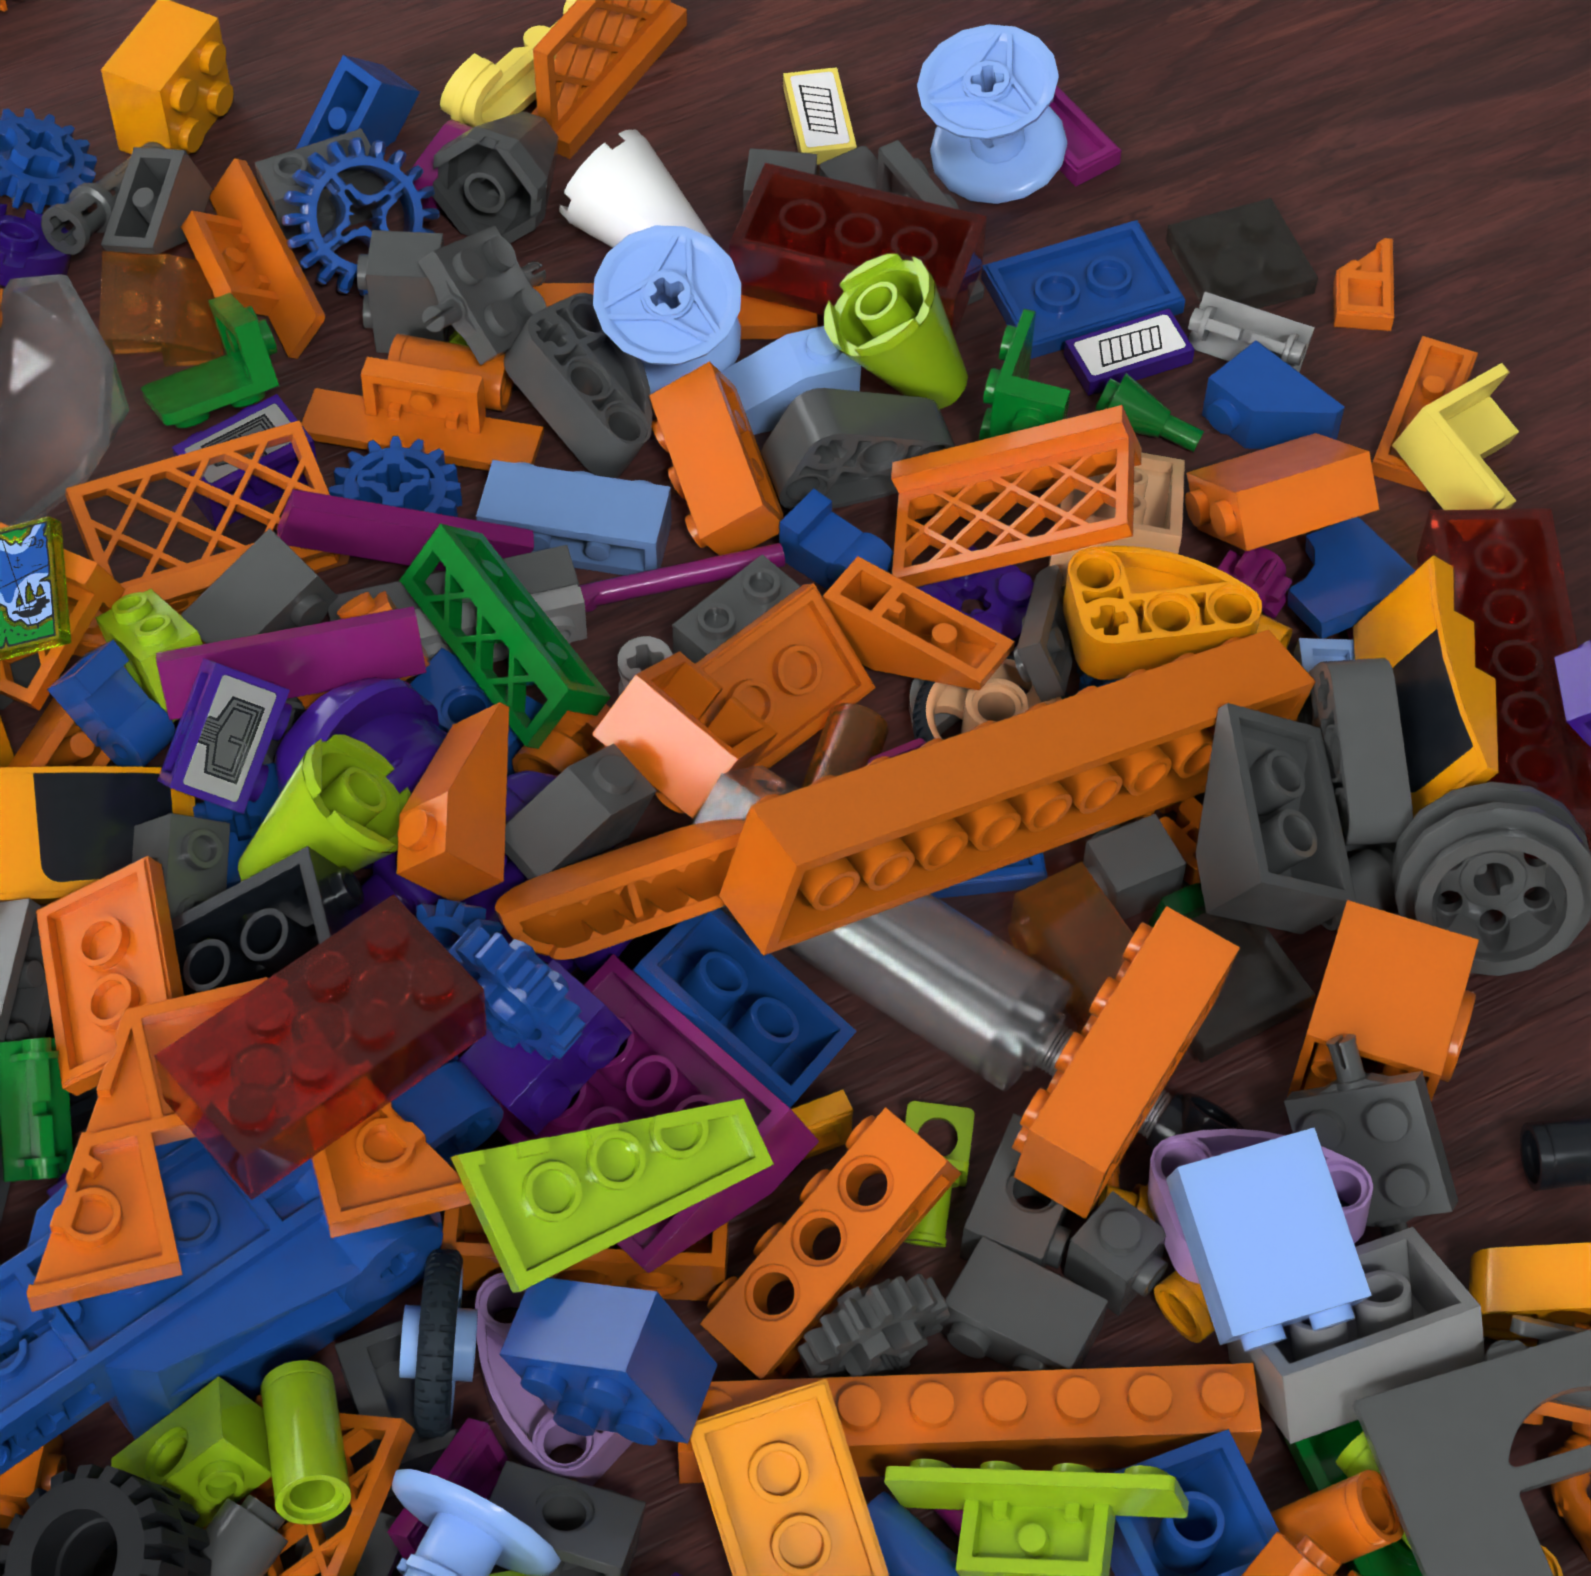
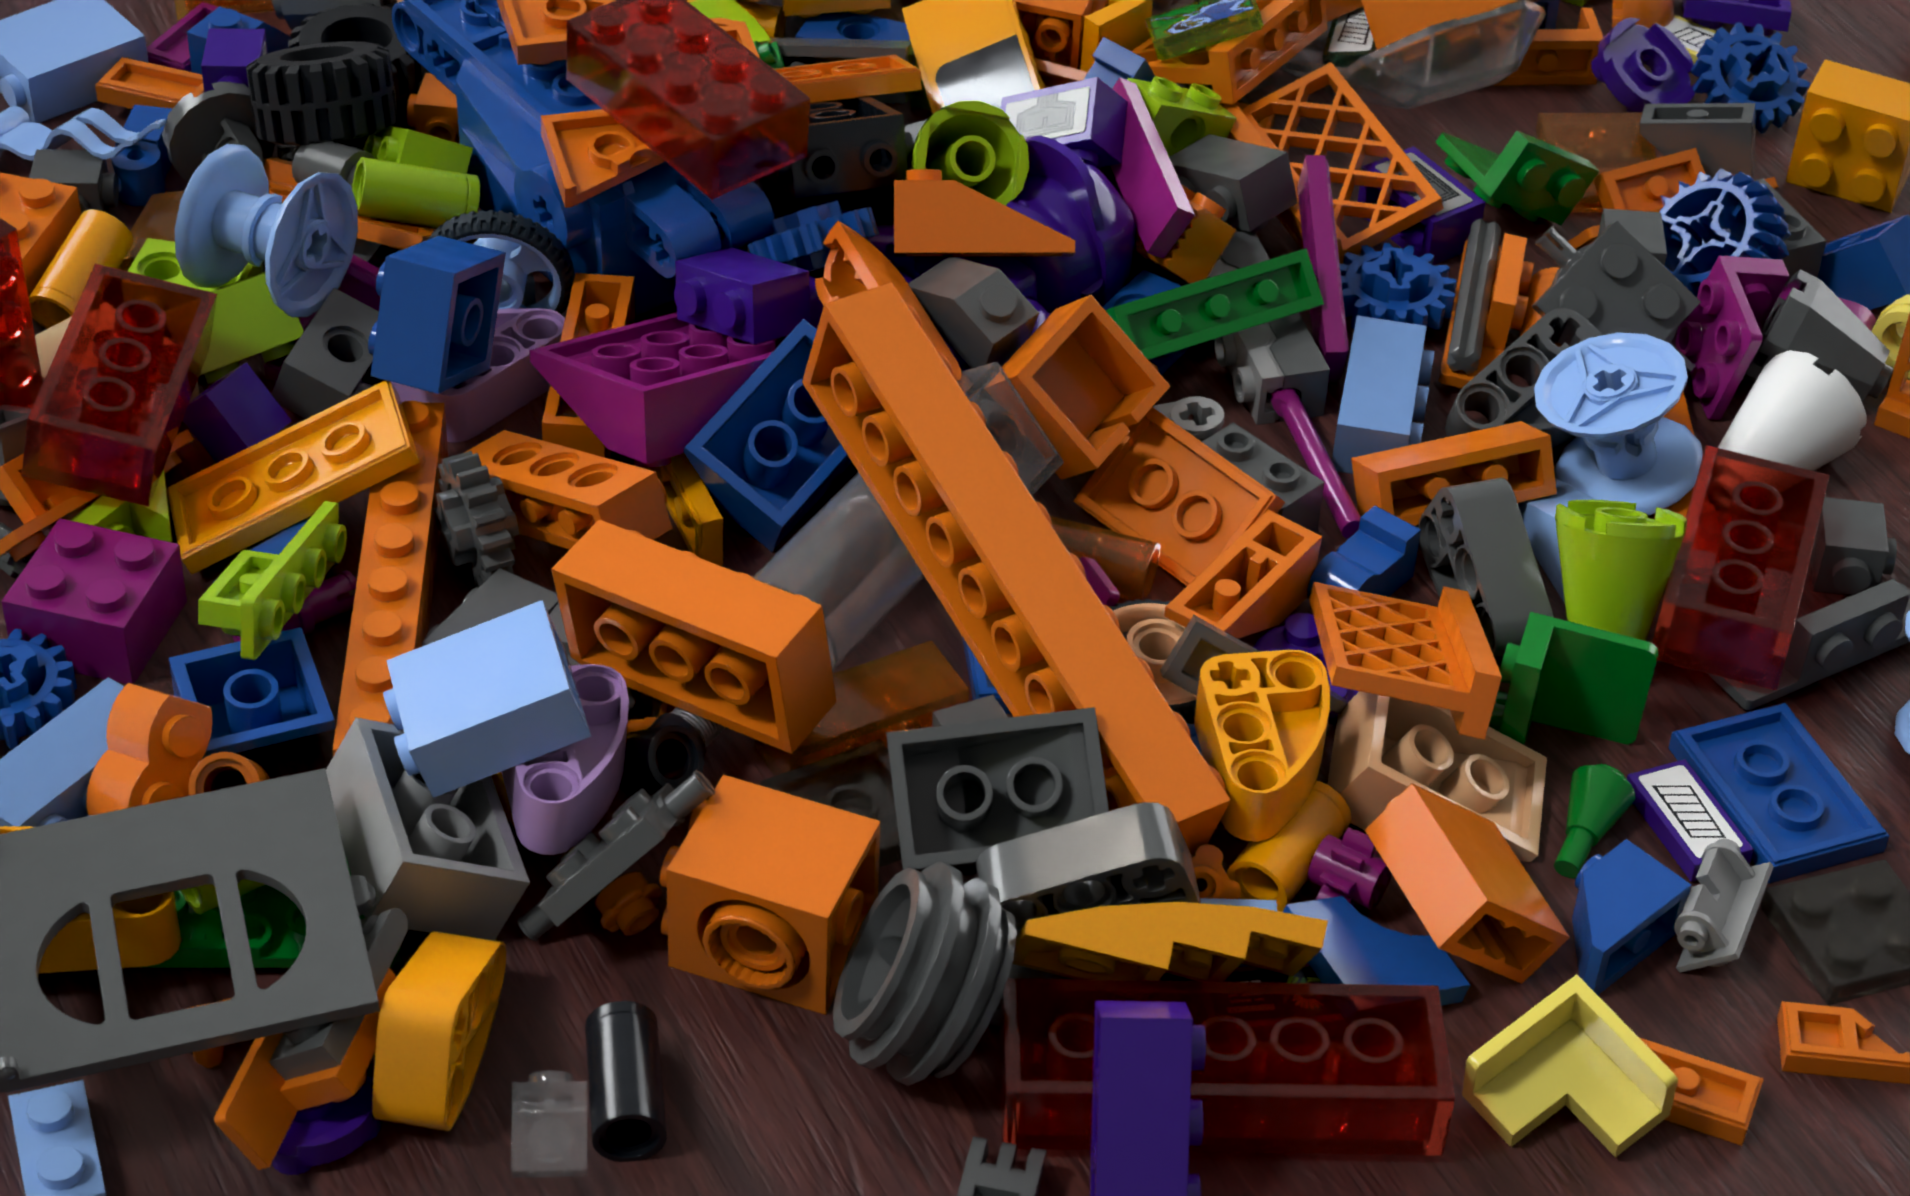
camera: 90 degrees right, 15 degrees down
(76, 211) = (1671, 86): dark grey pin -> none
(414, 423) = (1474, 297): none -> dark grey axle
(521, 994) = (742, 203): blue gear -> none
(528, 214) = (1727, 326): none -> magenta bracket
(591, 1188) = (569, 267): lime wing -> none

